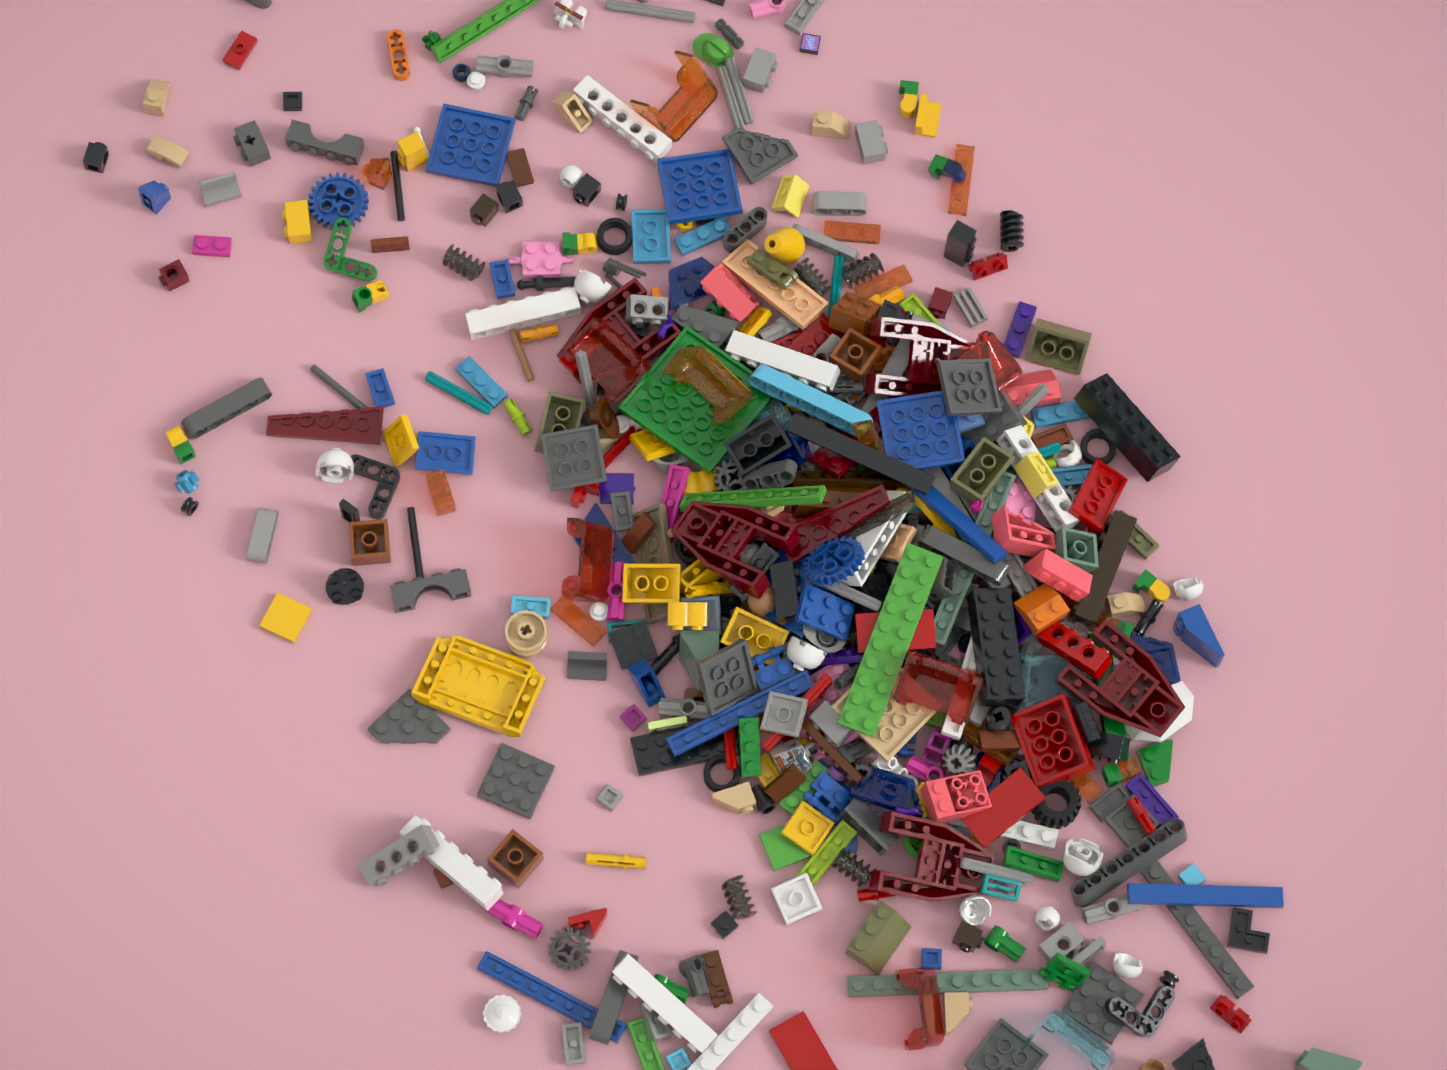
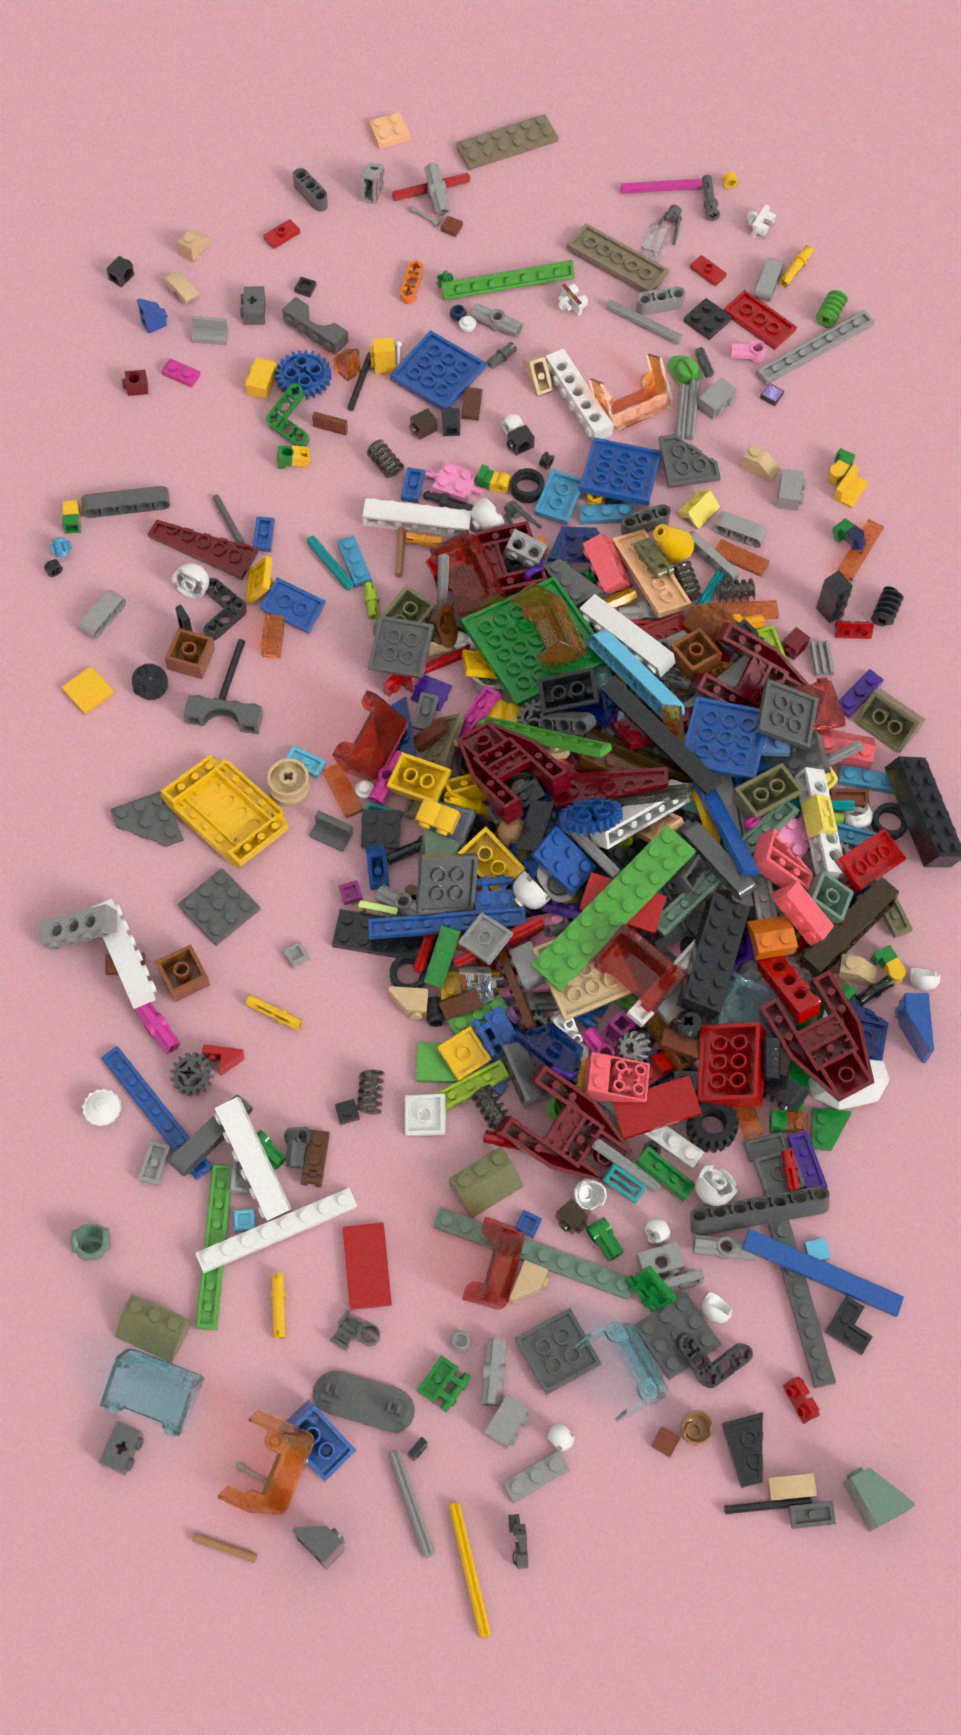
camera: 25 degrees right, 5 degrees down
(1169, 979) = (753, 1339): black bush -> none

